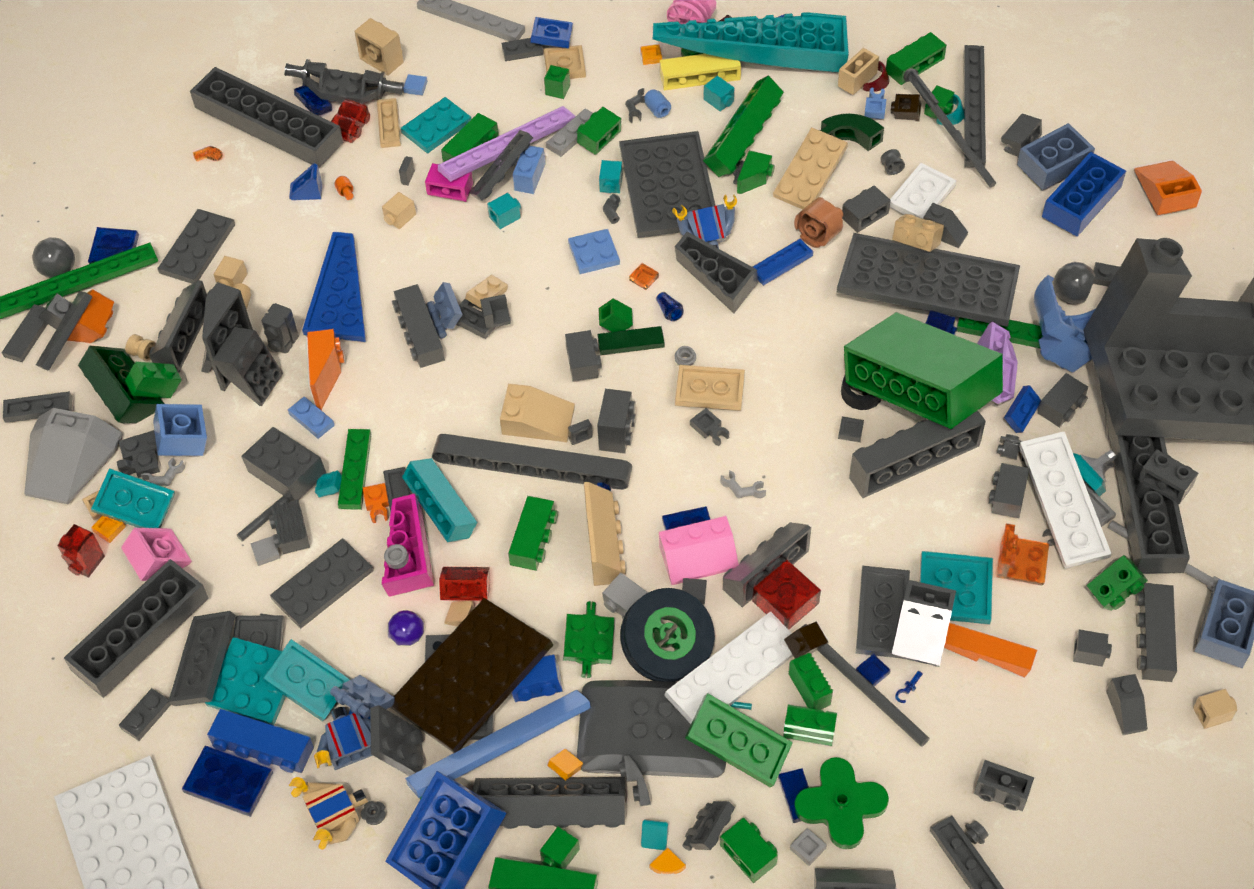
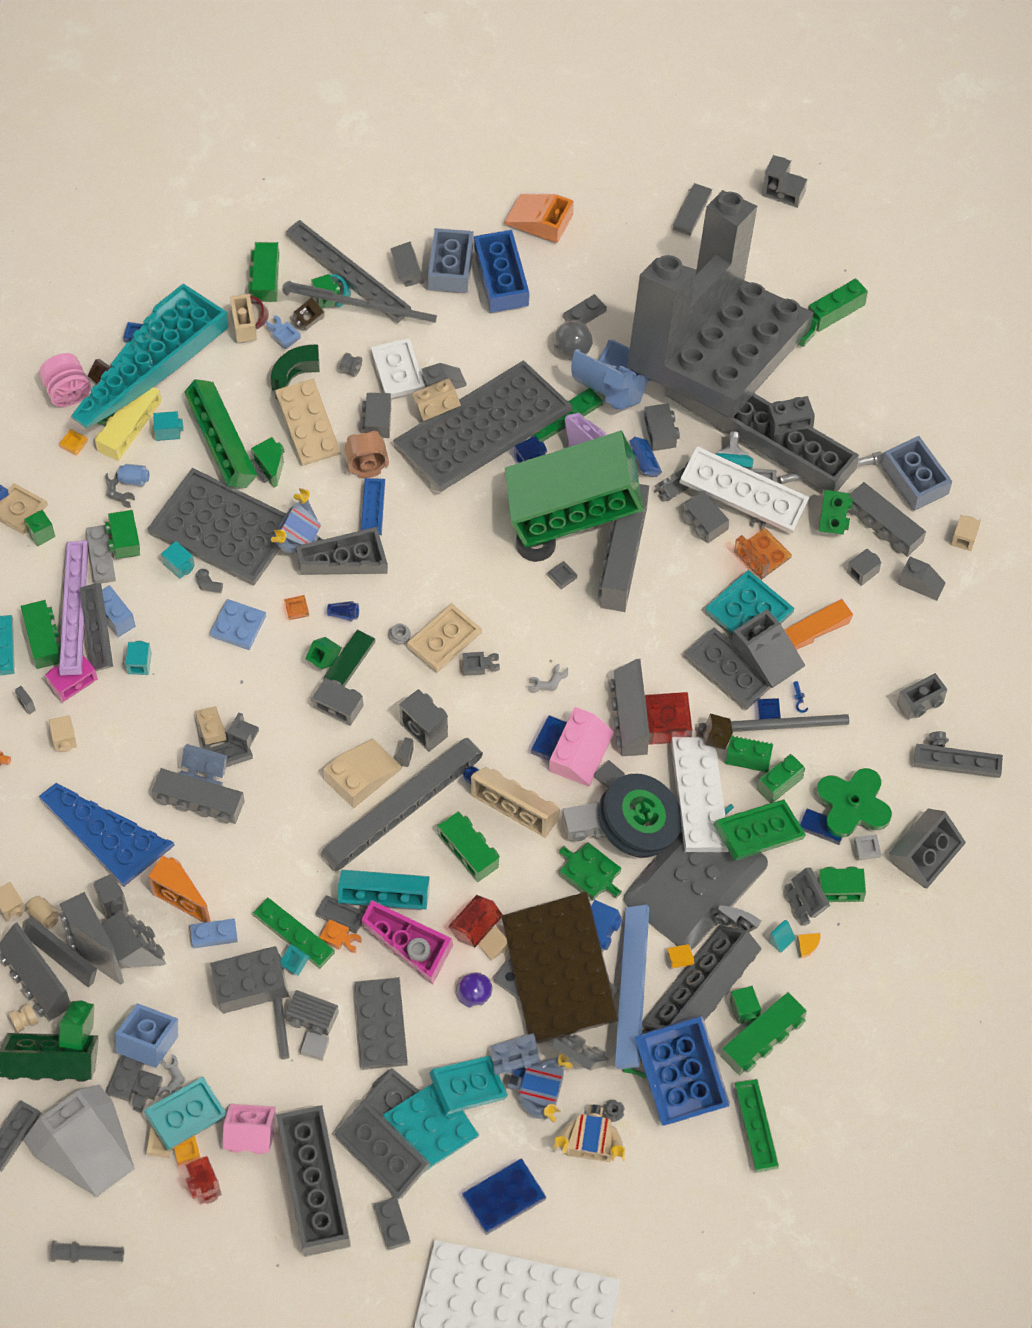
camera: 55 degrees left, 5 degrees up
(260, 741) = (489, 1152): blue brick -> none

